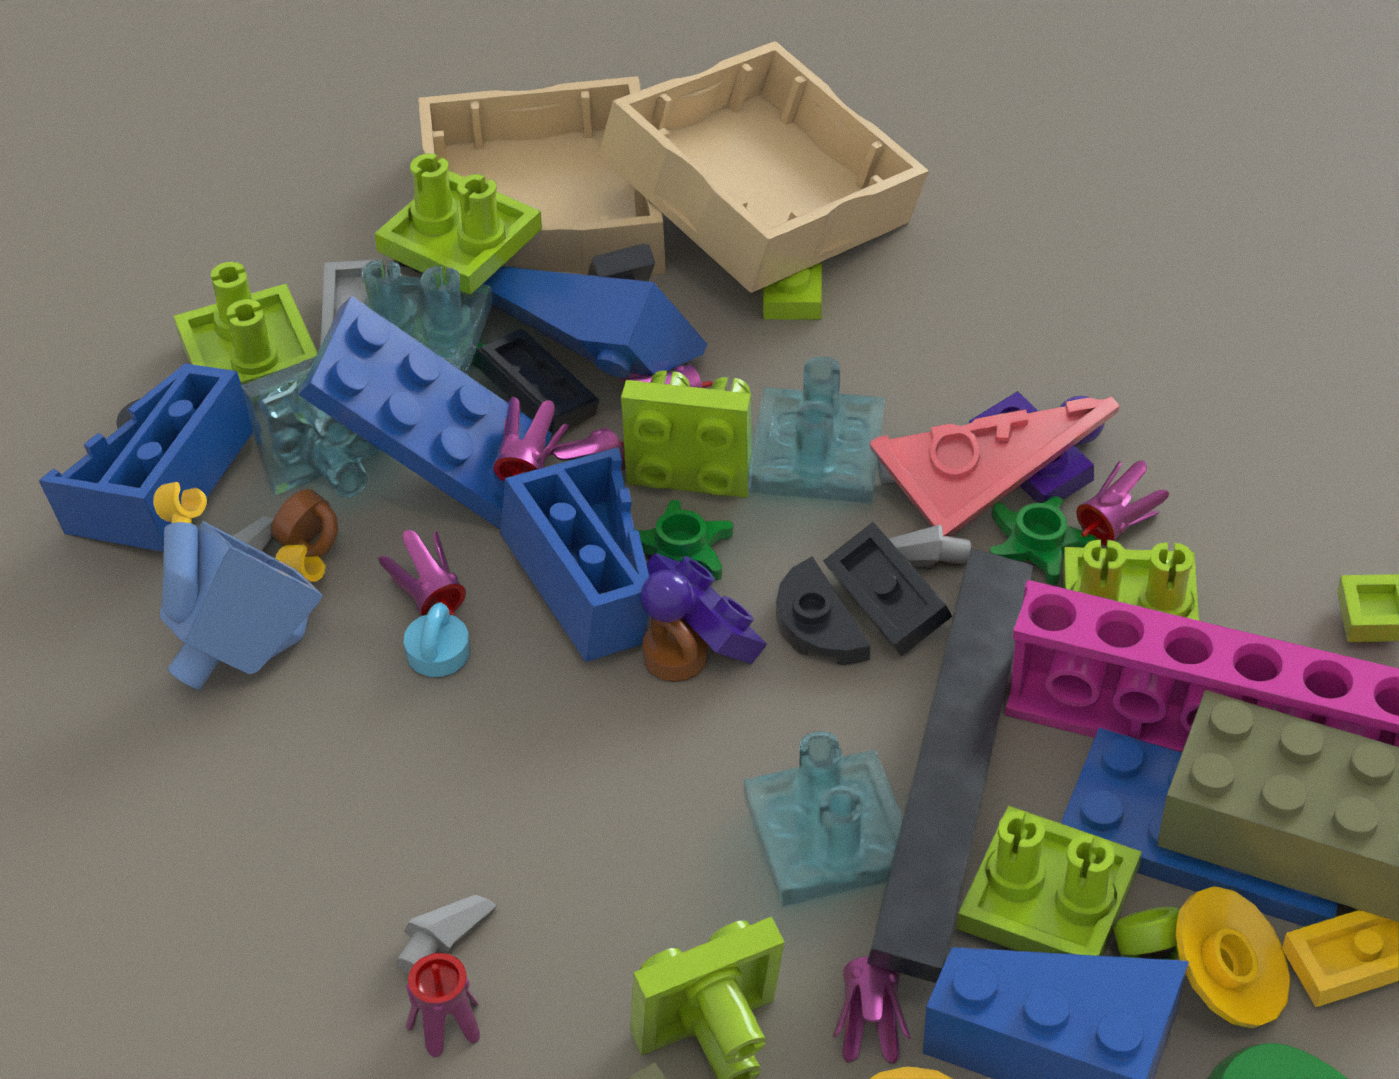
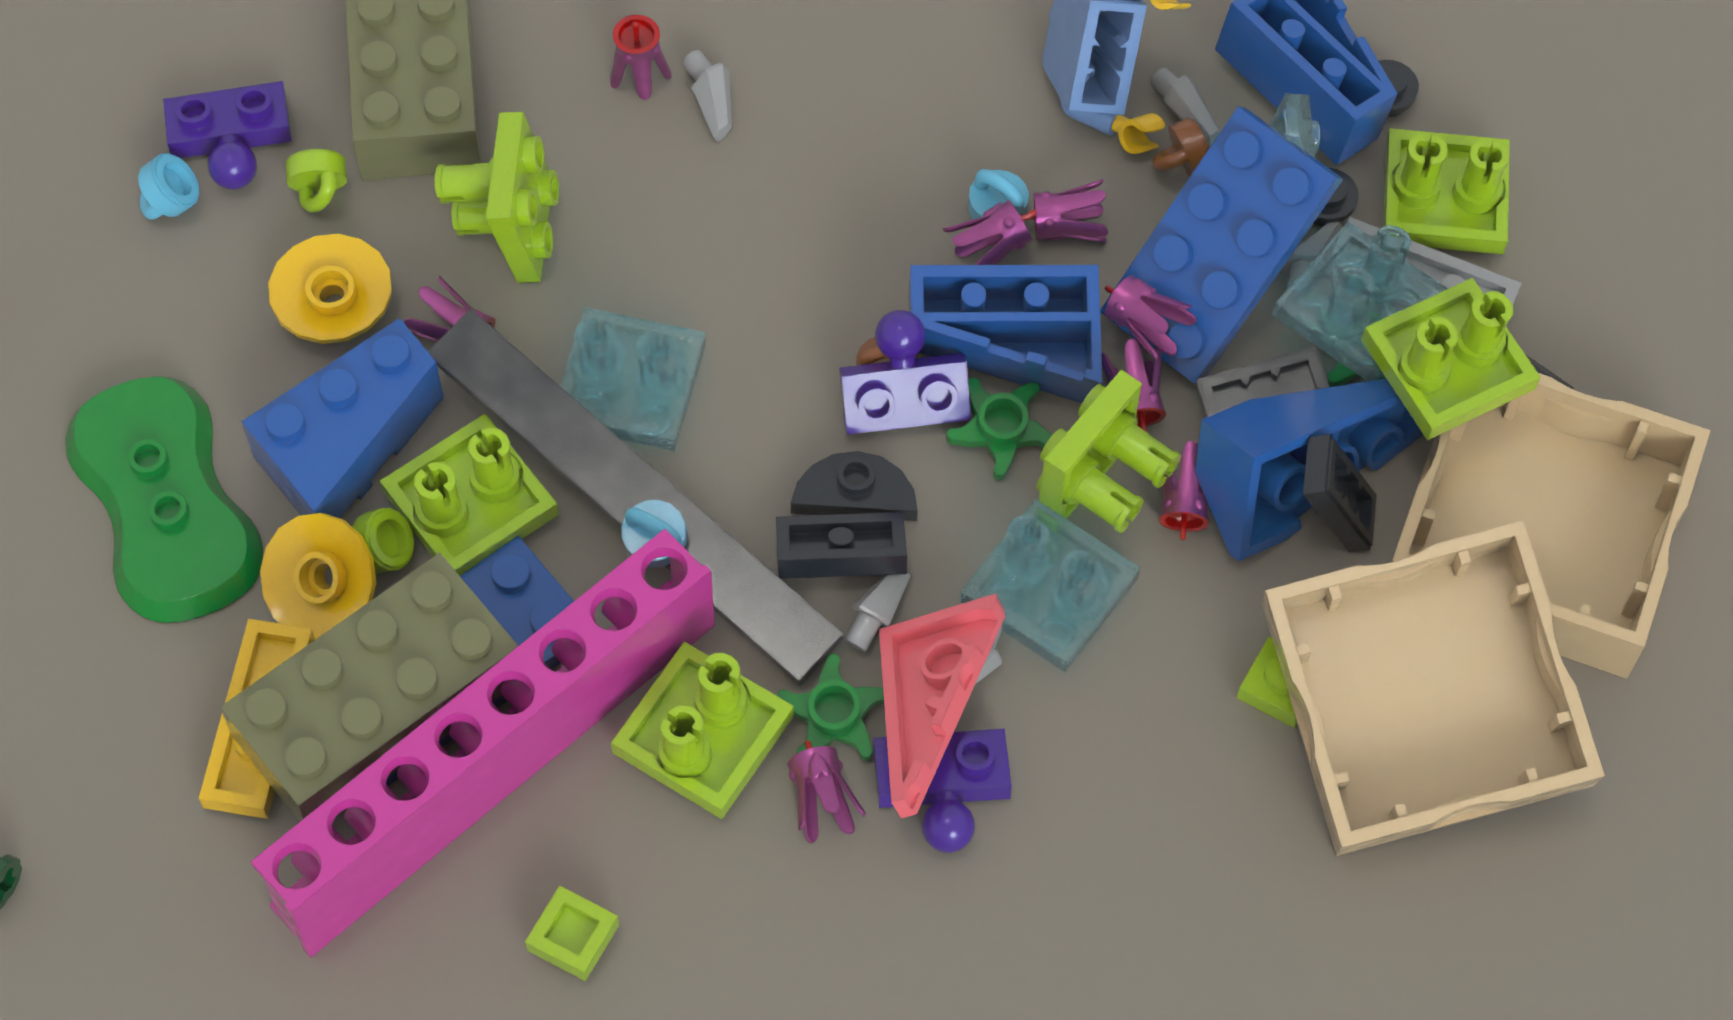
camera: 115 degrees right, 15 degrees up
(483, 601) = (997, 225): none -> flat silver piece
(991, 697) = (648, 520): none -> medium azure tile

